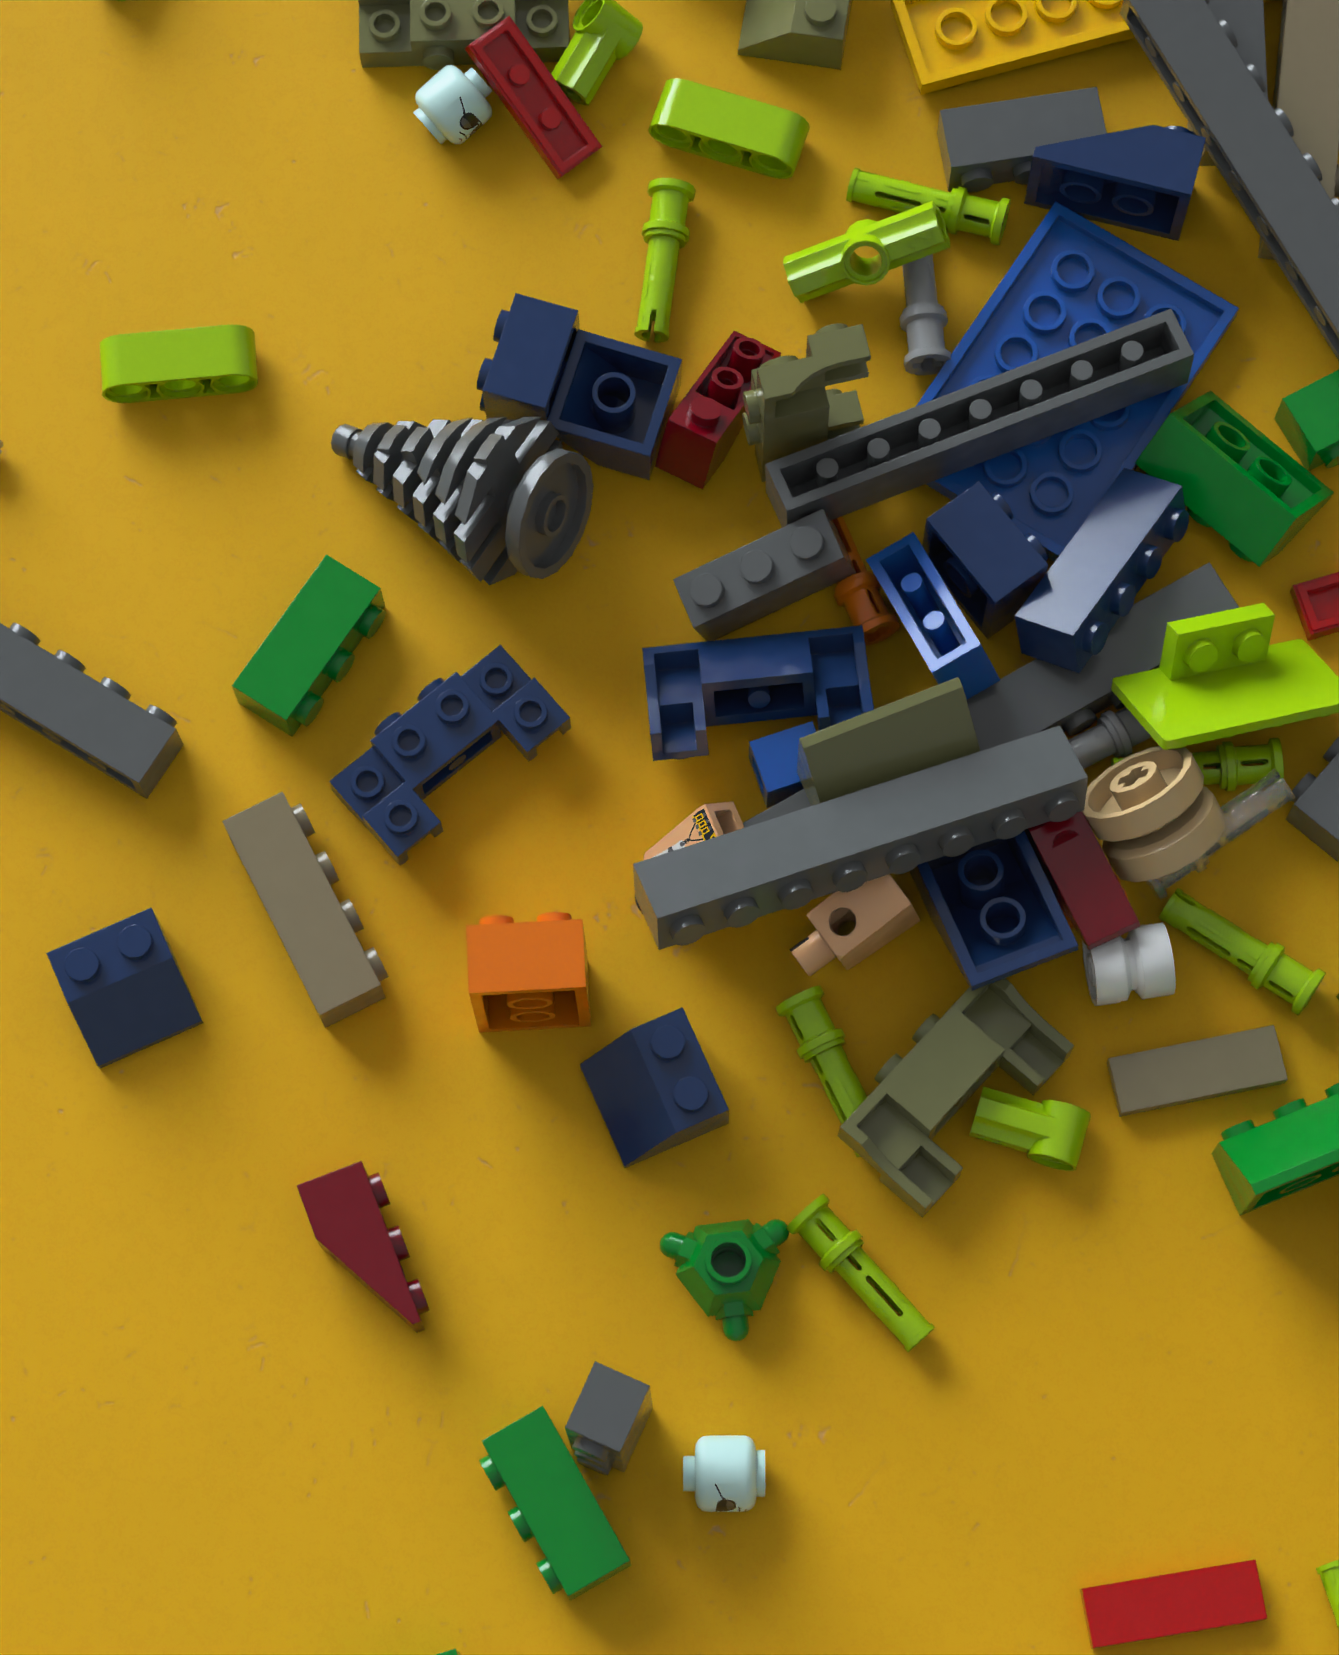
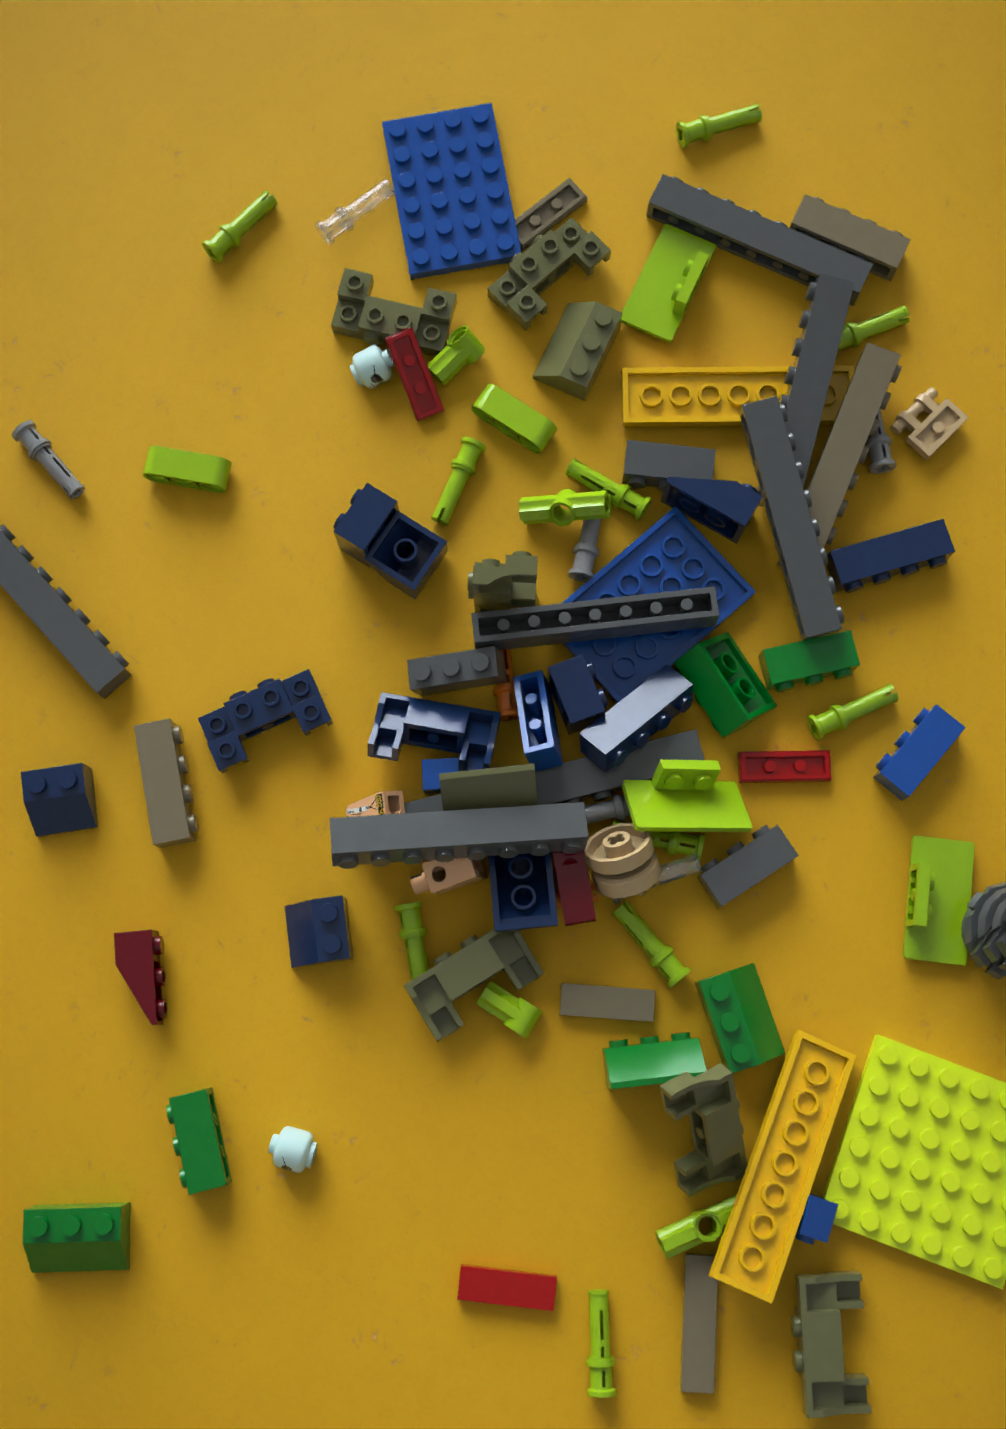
camera: 15 degrees right, 5 degrees up
(310, 646) = (210, 642): green brick -> none
(484, 489) = (322, 584): dark grey plant -> none
(528, 973) = (263, 855): orange brick -> none
(608, 1419) = (233, 1109): dark grey brick -> none
(711, 412) = (450, 578): dark red slope -> none
(728, 1268) = (328, 1039): green rock -> none
(910, 1326) = (393, 1044): lime pin -> none
(1136, 963) = (588, 937): white wheel -> none

